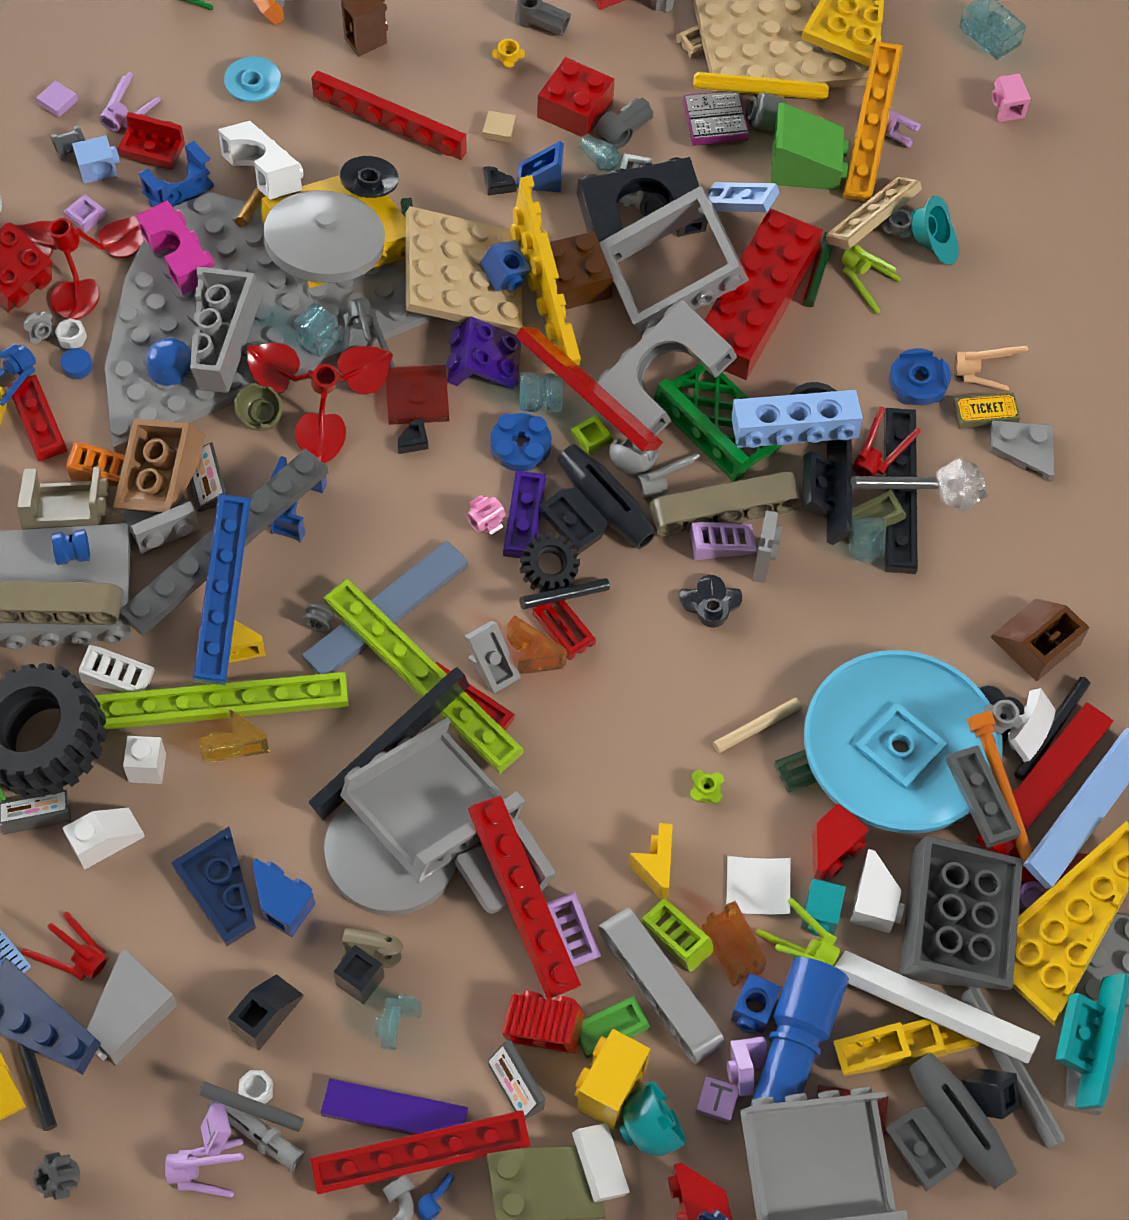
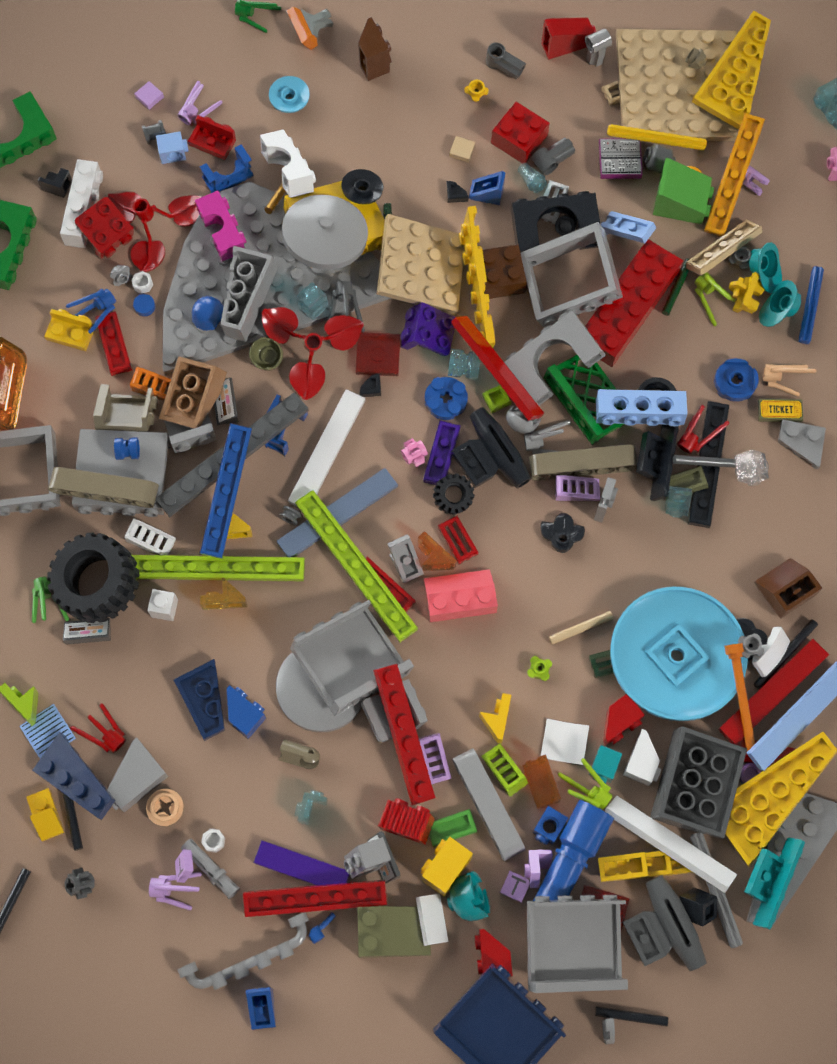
camera: 10 degrees right, 10 degrees up
(85, 213) = (160, 188): lavender tile -> none
(102, 834) = (130, 654): white slope -> none
(179, 1033) = (167, 796): none -> light nougat gear
(250, 1106) = (208, 853): dark grey bar -> none
(264, 1010) = (225, 789): black slope -> none
(359, 974) = (289, 772): black panel -> none
(362, 520) = (328, 446): none -> white tile
(389, 115) = (384, 133): red plate -> none
(406, 726) = (338, 605): black tile -> none
(492, 1080) = (366, 858): none -> light grey brick
(505, 266) = (456, 260): blue brick -> none
(564, 593) = (461, 517): black bar -> none
(579, 701) = (460, 595): none -> coral slope
(911, 263) = (743, 291): none -> yellow hips
(964, 275) = (781, 304): none -> teal piece
(983, 796) = (726, 702): dark grey plate -> none
(1004, 274) = (811, 305): none -> blue axle

